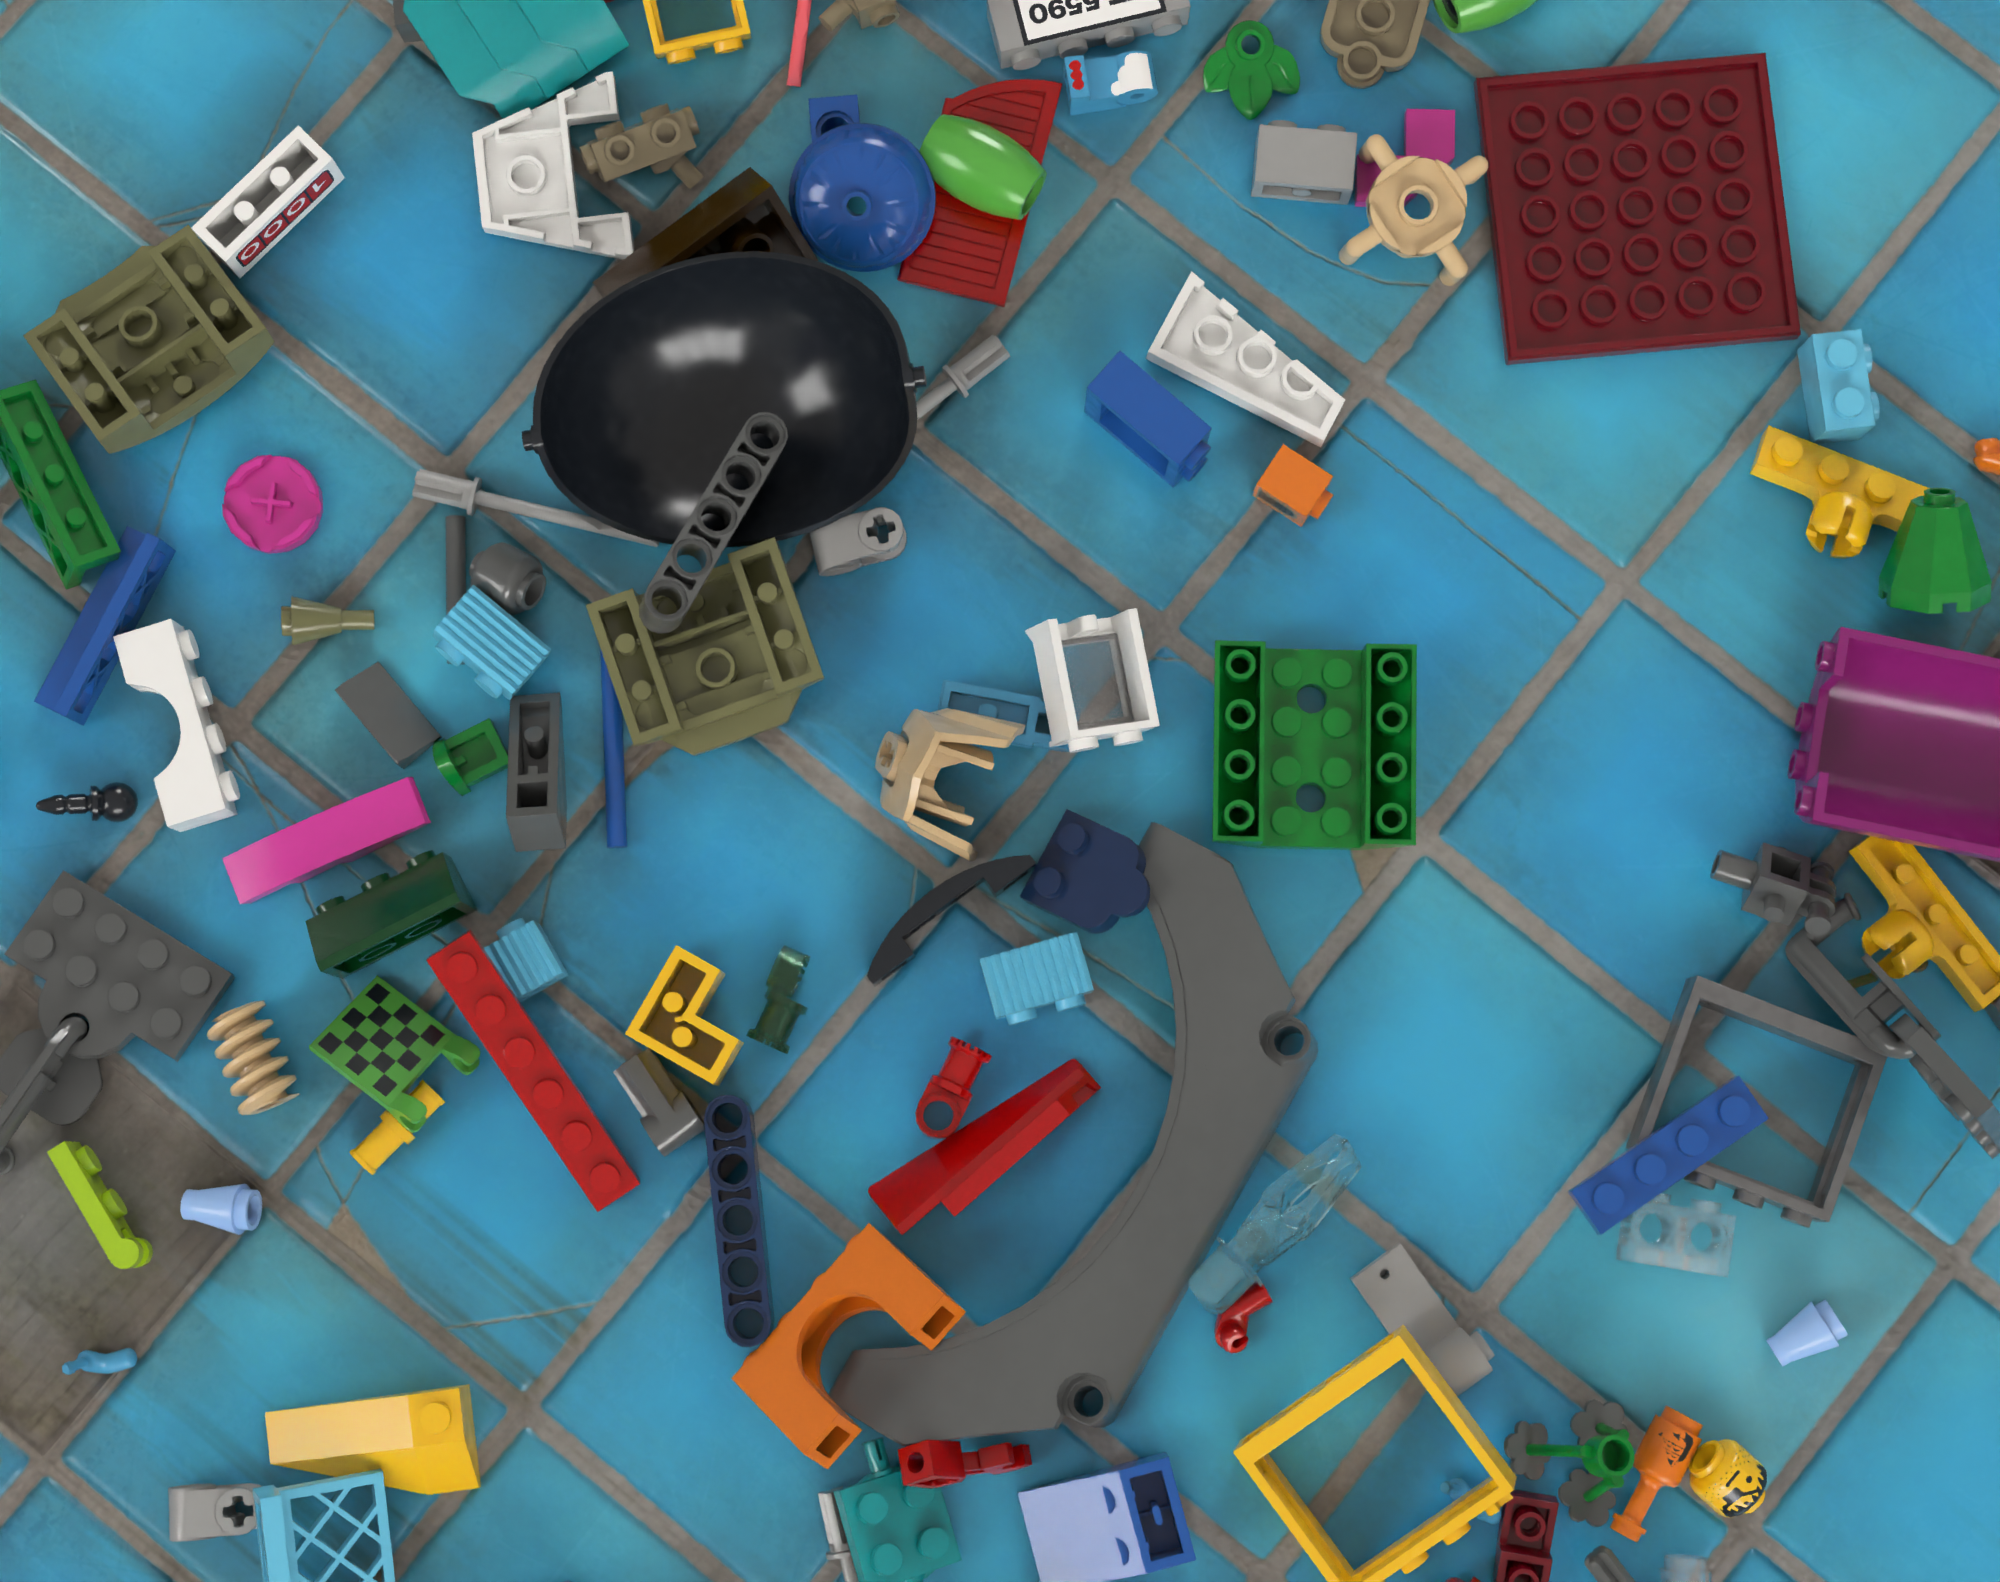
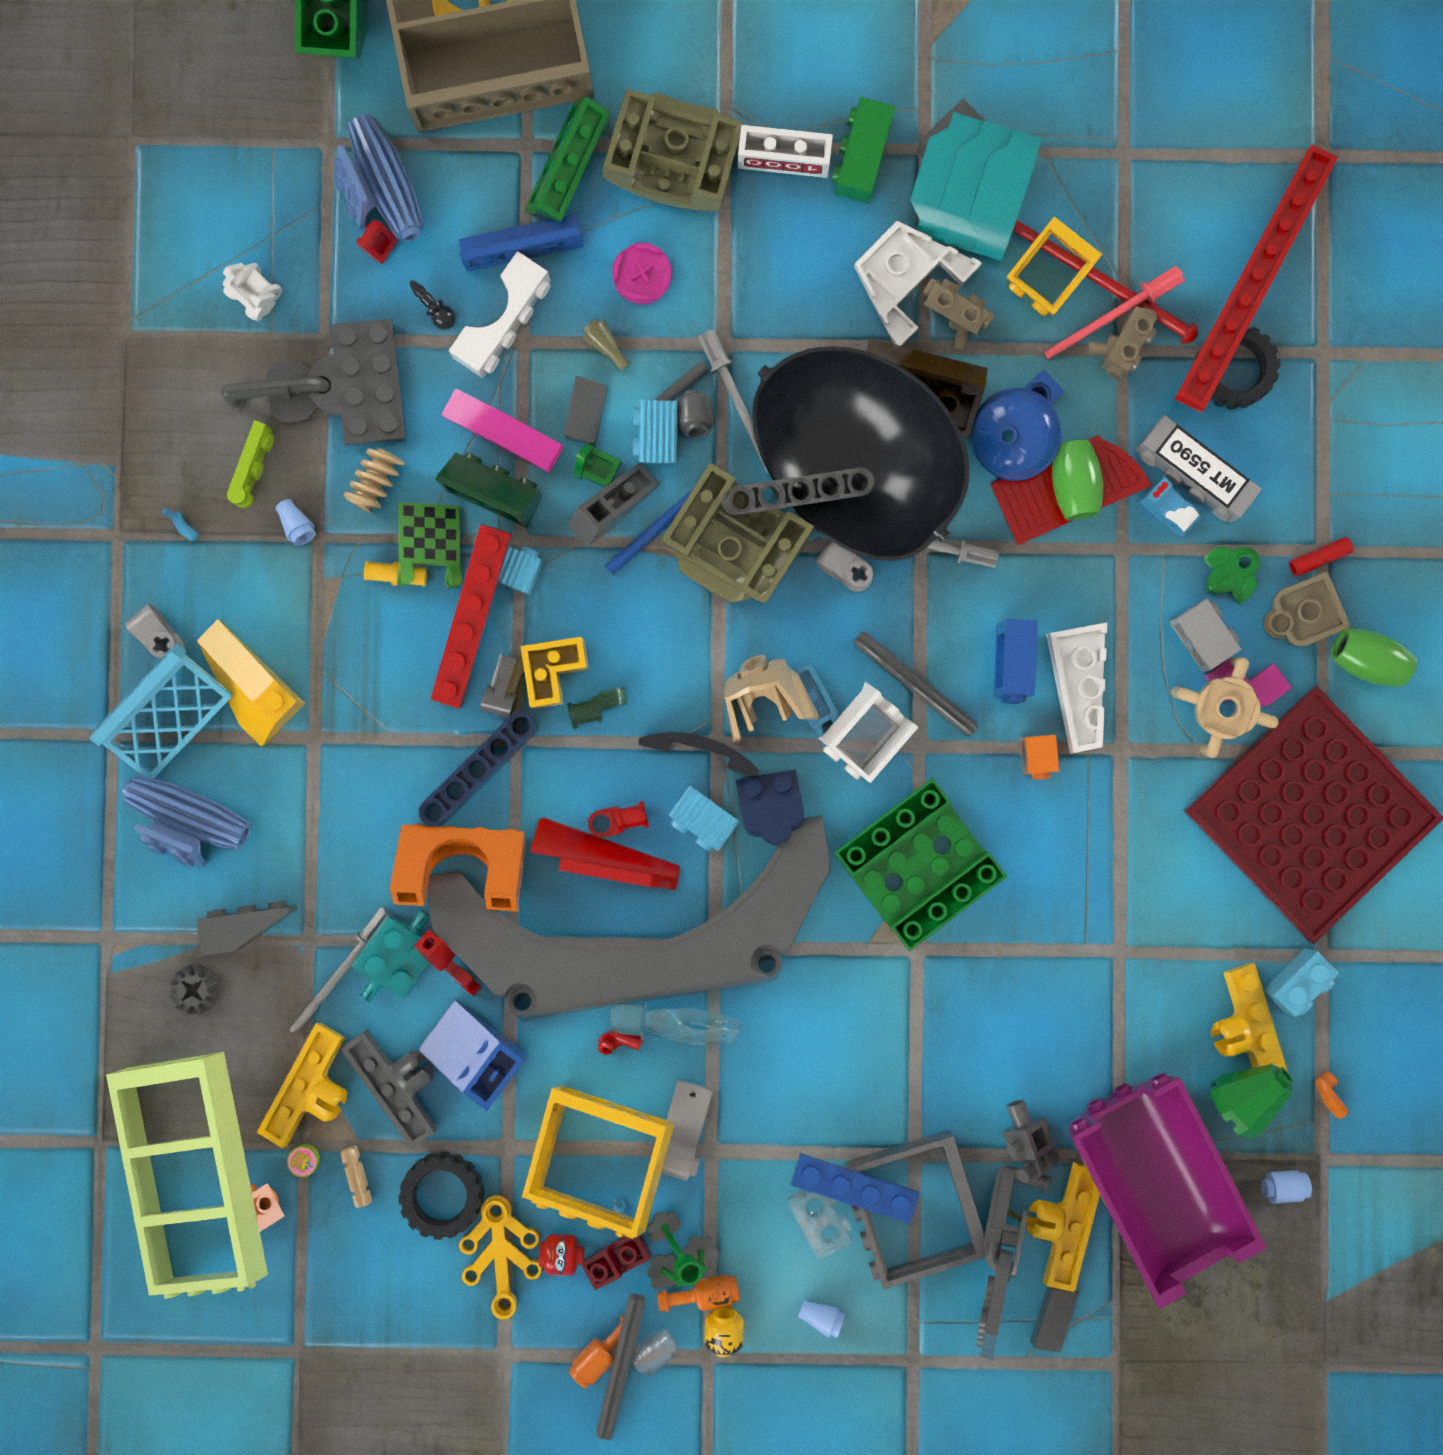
camera: 50 degrees right, 5 degrees up
(347, 104) = (863, 149): none -> green brick
(1078, 570) = (916, 684): none -> dark grey axle

